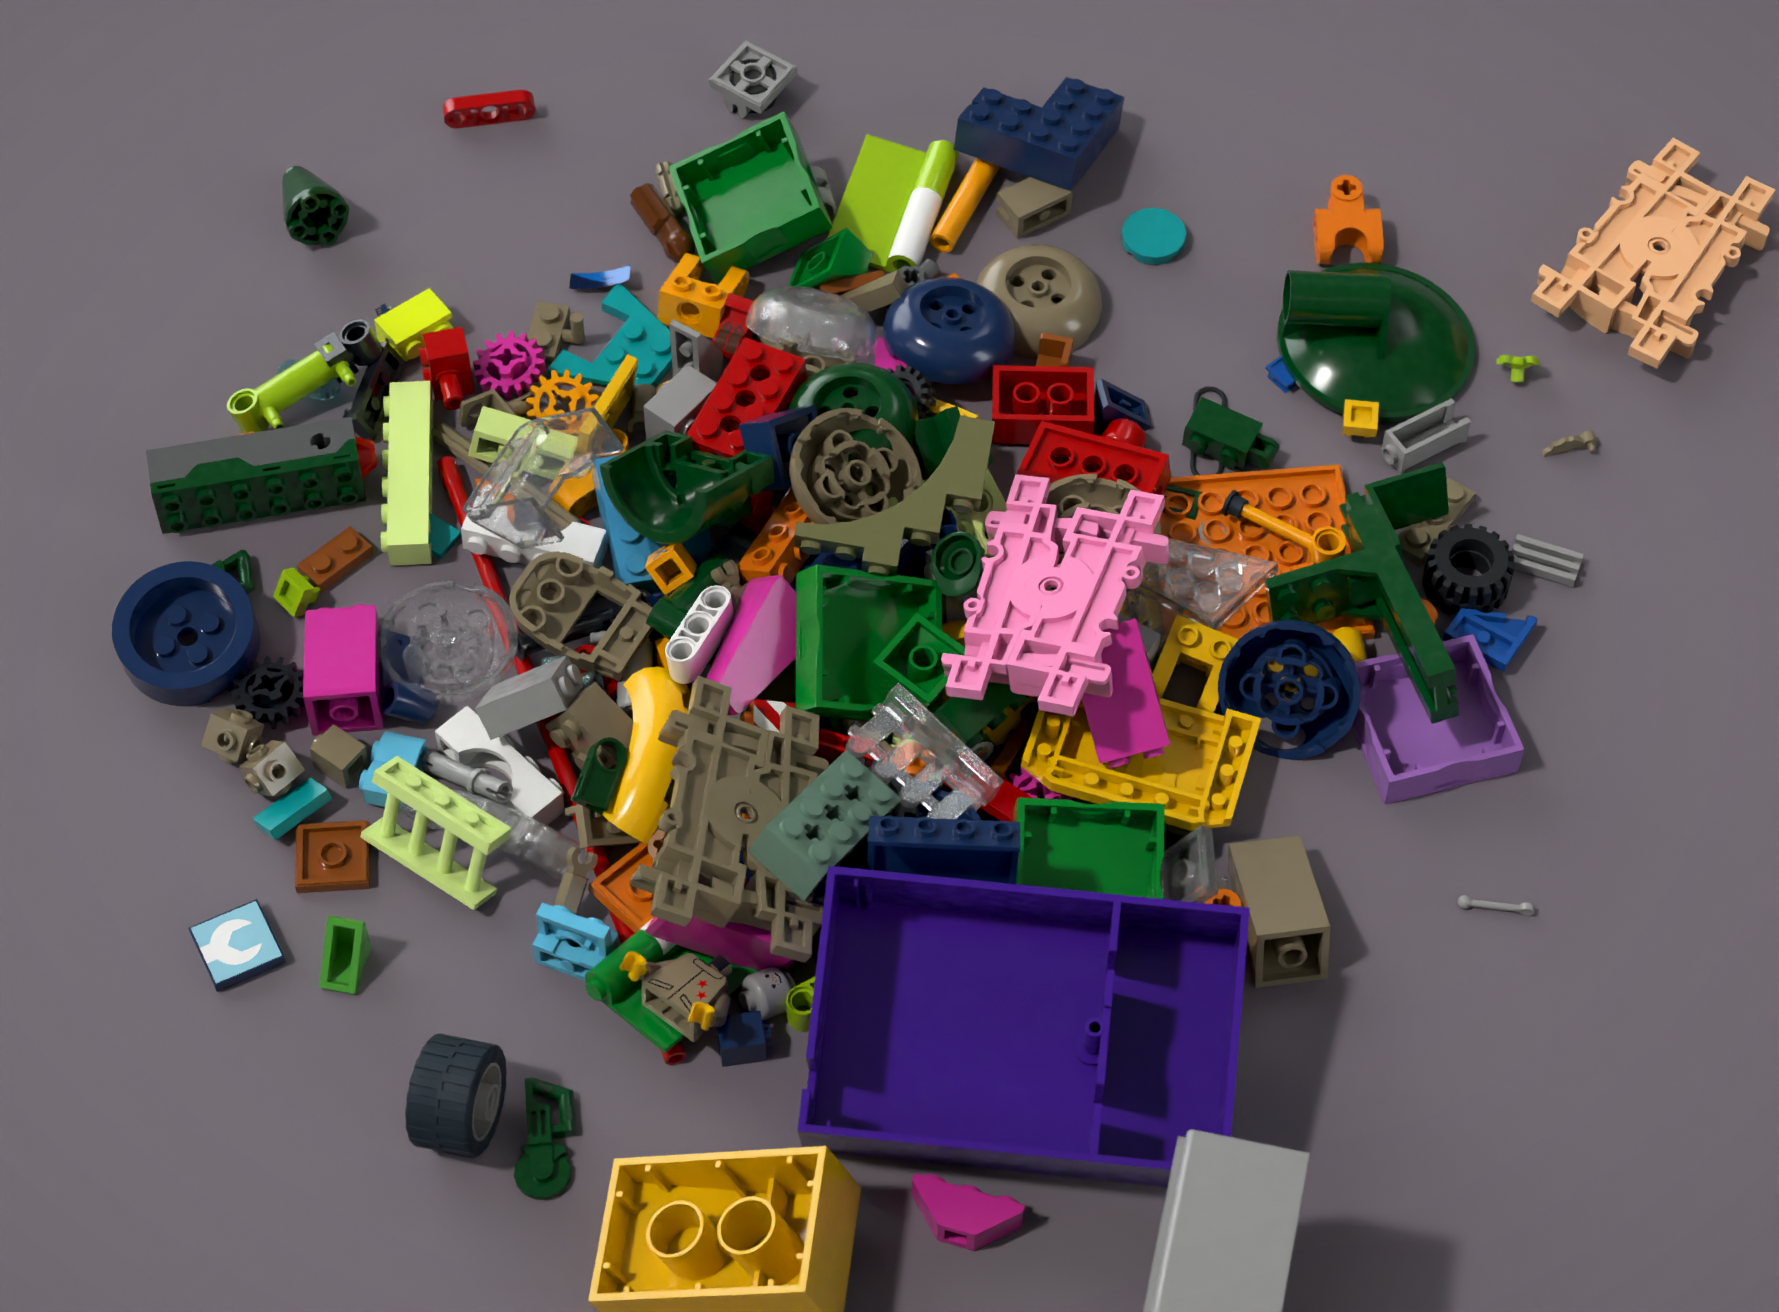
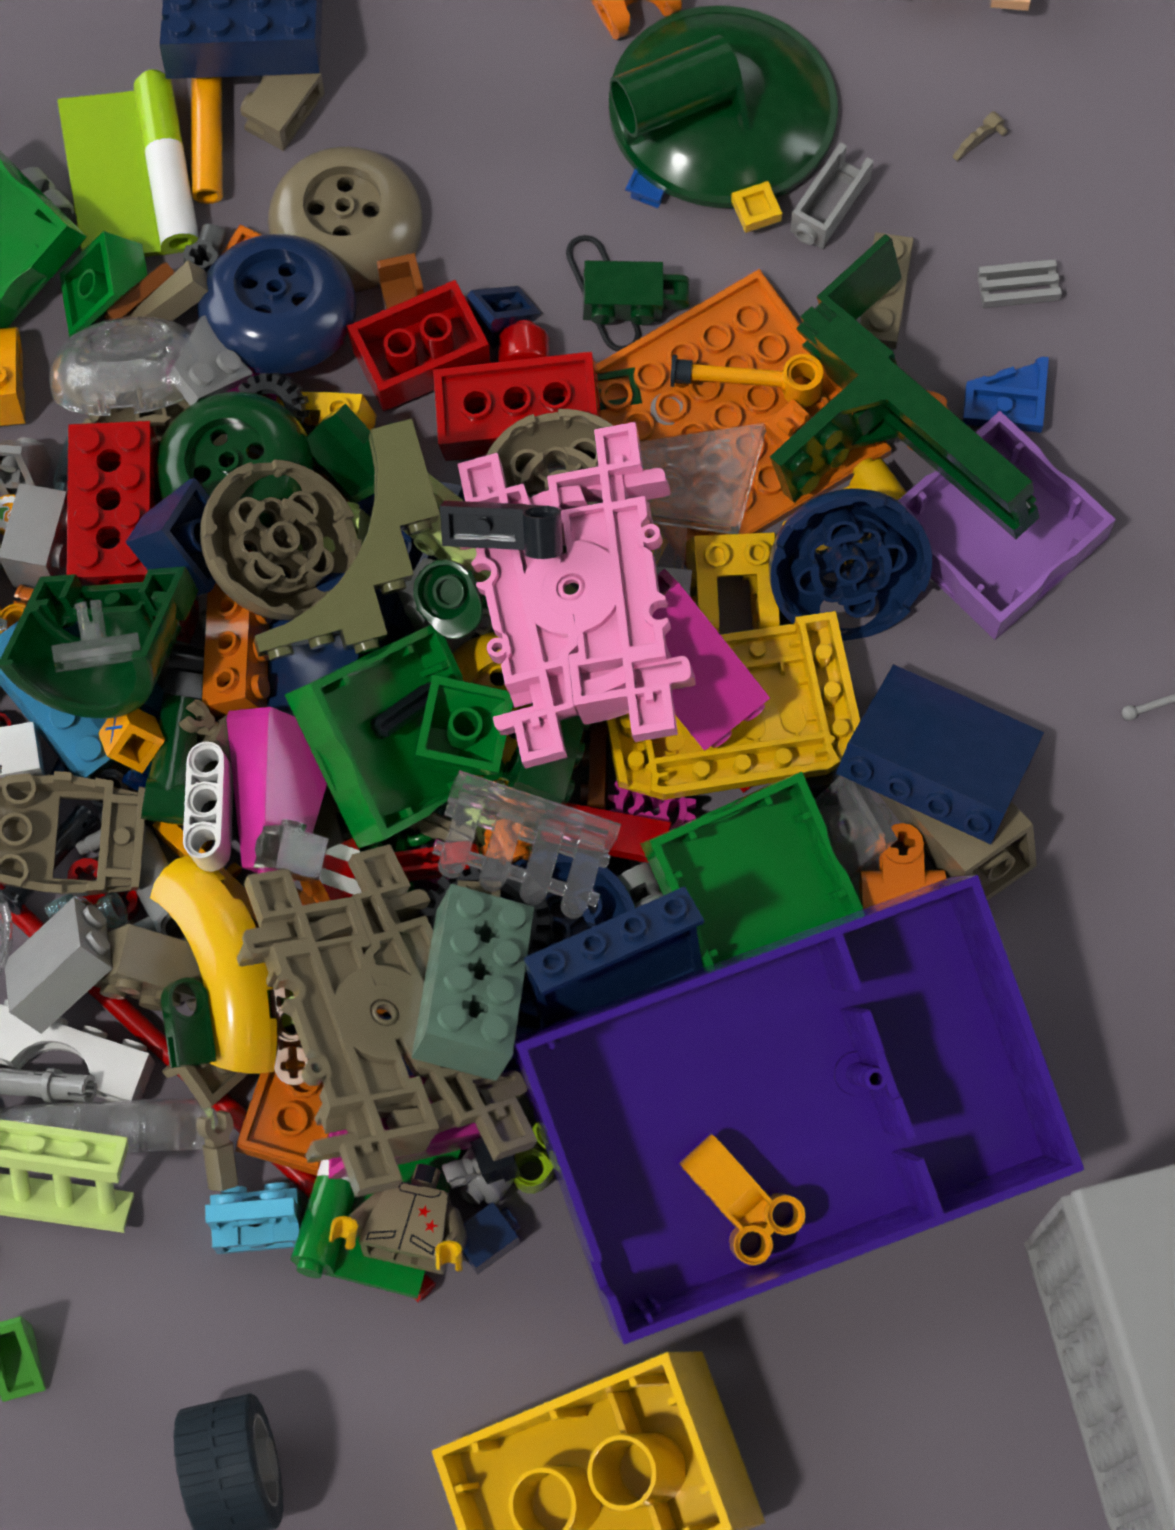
camera: 25 degrees left, 15 degrees up
(543, 1167) = (353, 1487): dark green piece -> none
(675, 484) = (95, 646): none -> clear tile
(732, 325) = (38, 407): red leg -> none
(745, 679) = (291, 848): none -> clear smoke brick
(775, 975) = (462, 1171): none -> piece
(874, 634) = (401, 712): none -> black axle
(876, 347) = (216, 368): none -> light grey wing
(951, 1089) = (739, 1197): none -> light orange piece
(964, 1213) = (814, 1318): dark pink slope -> none
(1021, 522) = (503, 526): none -> black plate
(1153, 235) = (428, 83): teal tile -> none
(1286, 848) = (940, 753): none -> dark blue panel
(1470, 549) = (960, 308): black tyre -> none
(1517, 365) = (882, 68): lime plant -> none

